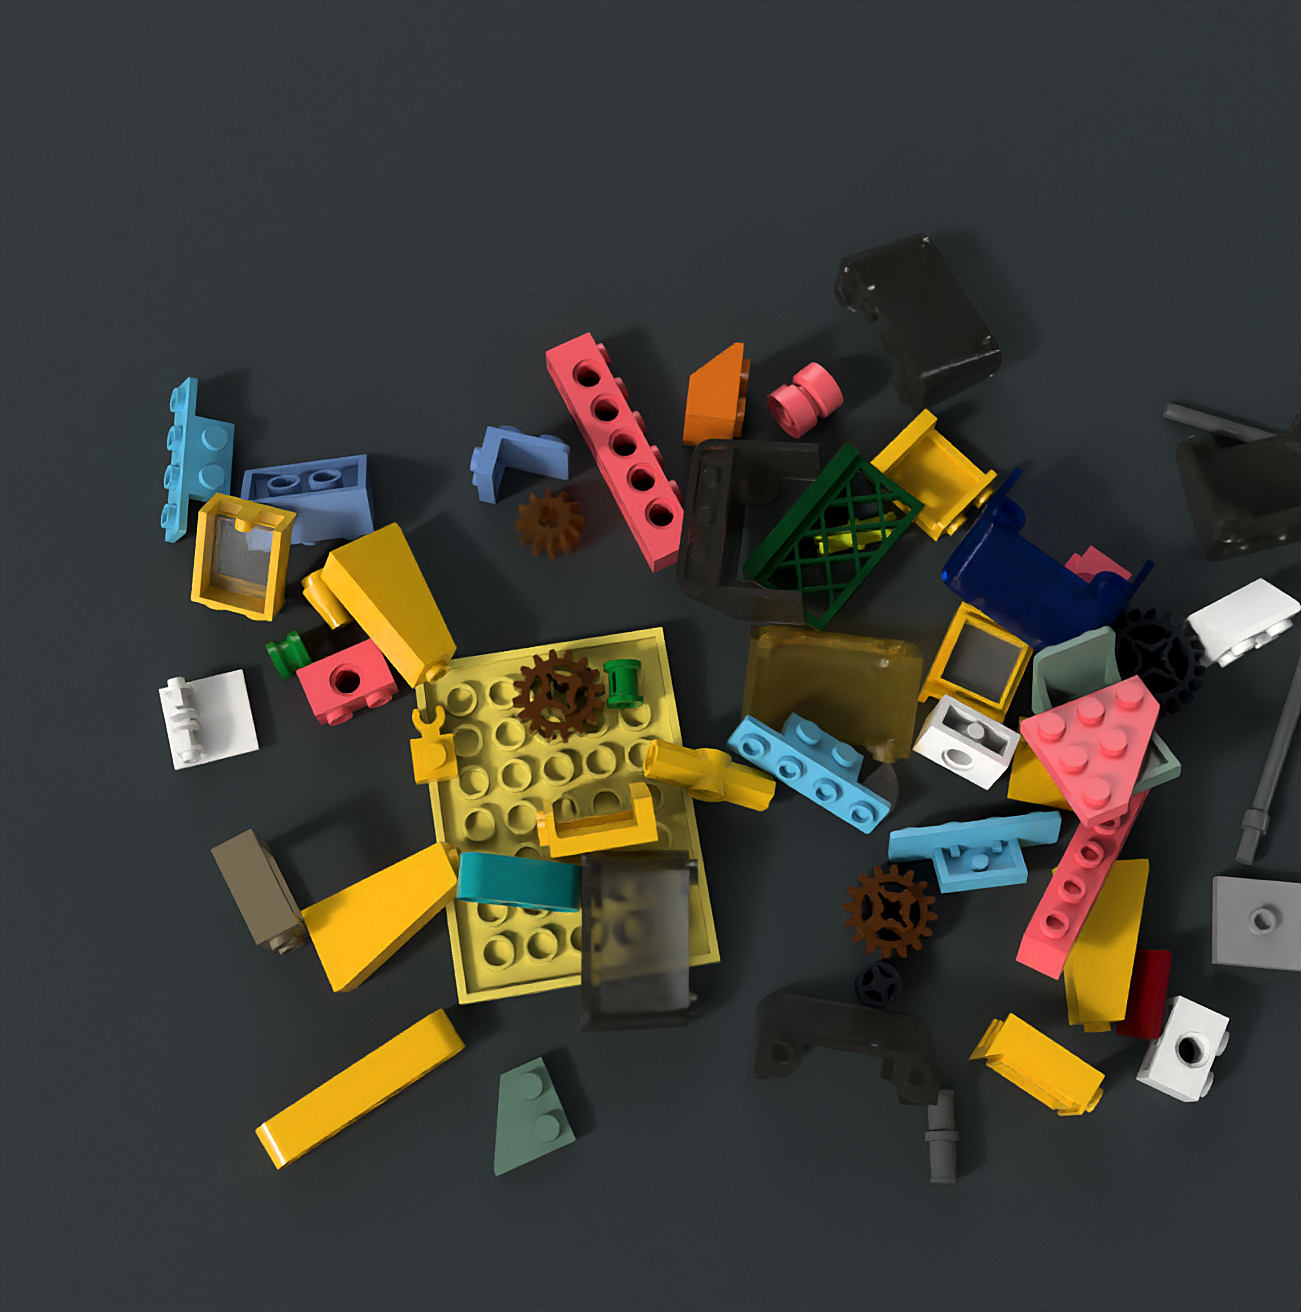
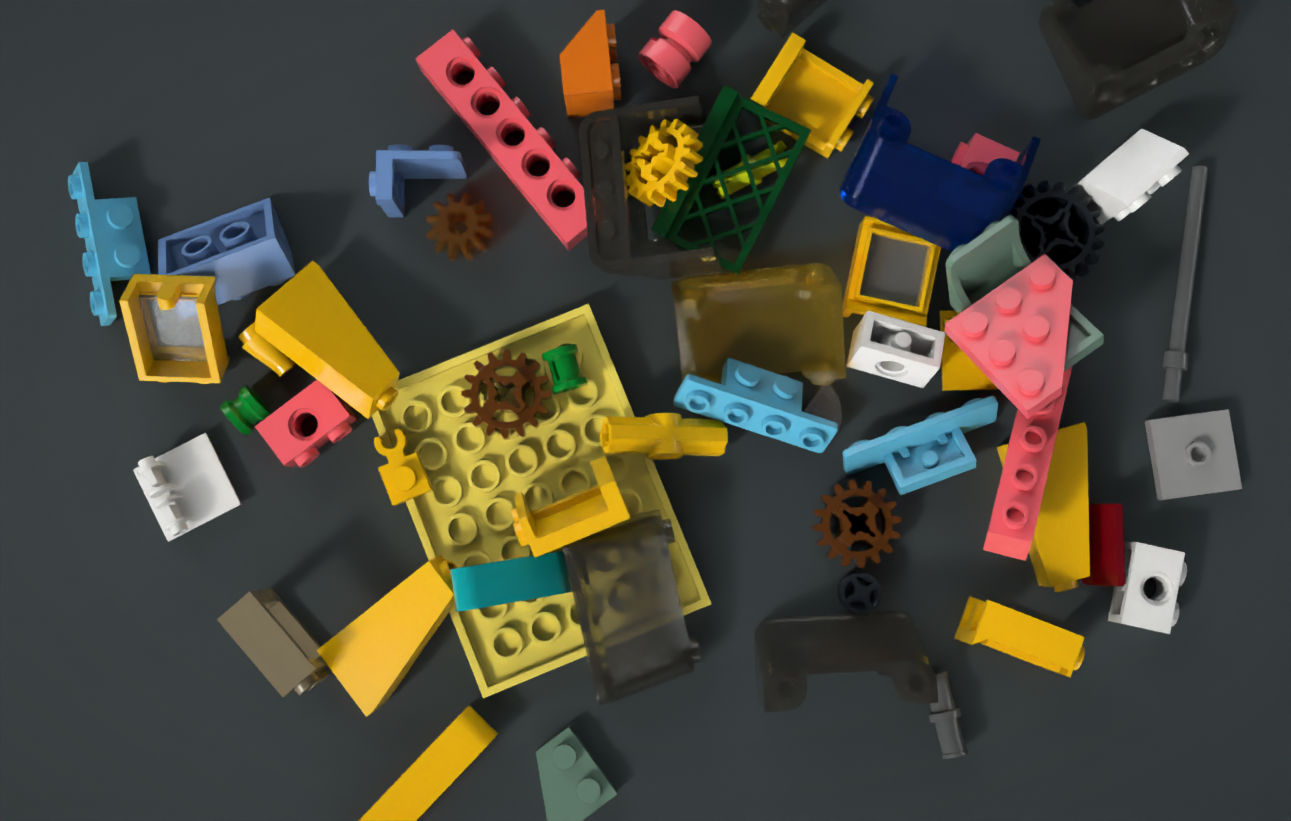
camera: 10 degrees left, 10 degrees up
(769, 503) = (663, 163): none -> yellow gear

